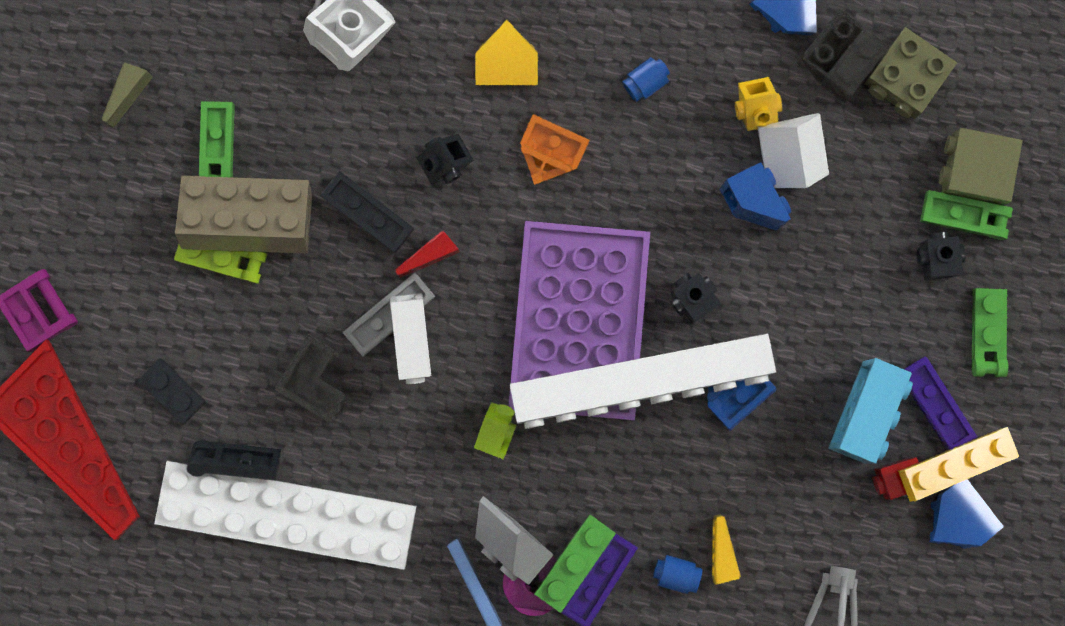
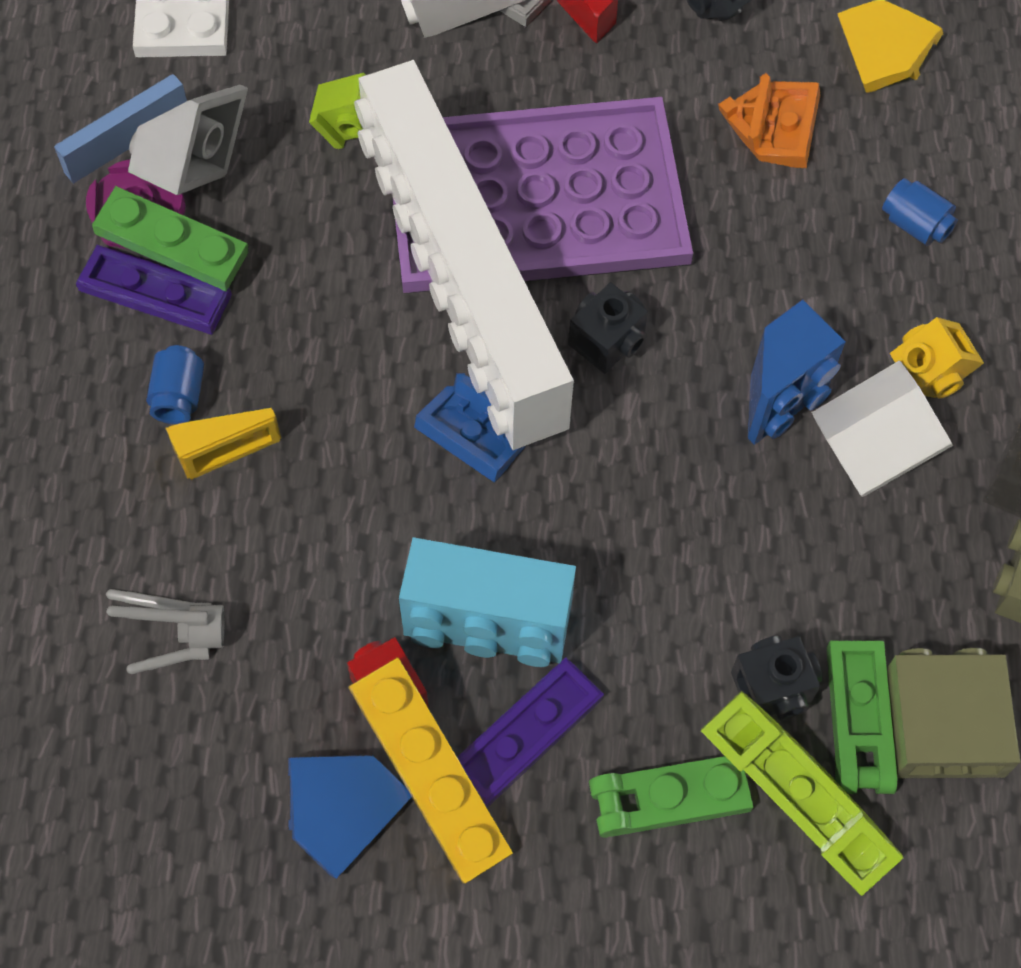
camera: 75 degrees right, 20 degrees down
(1007, 257) = (803, 791): none -> lime slope

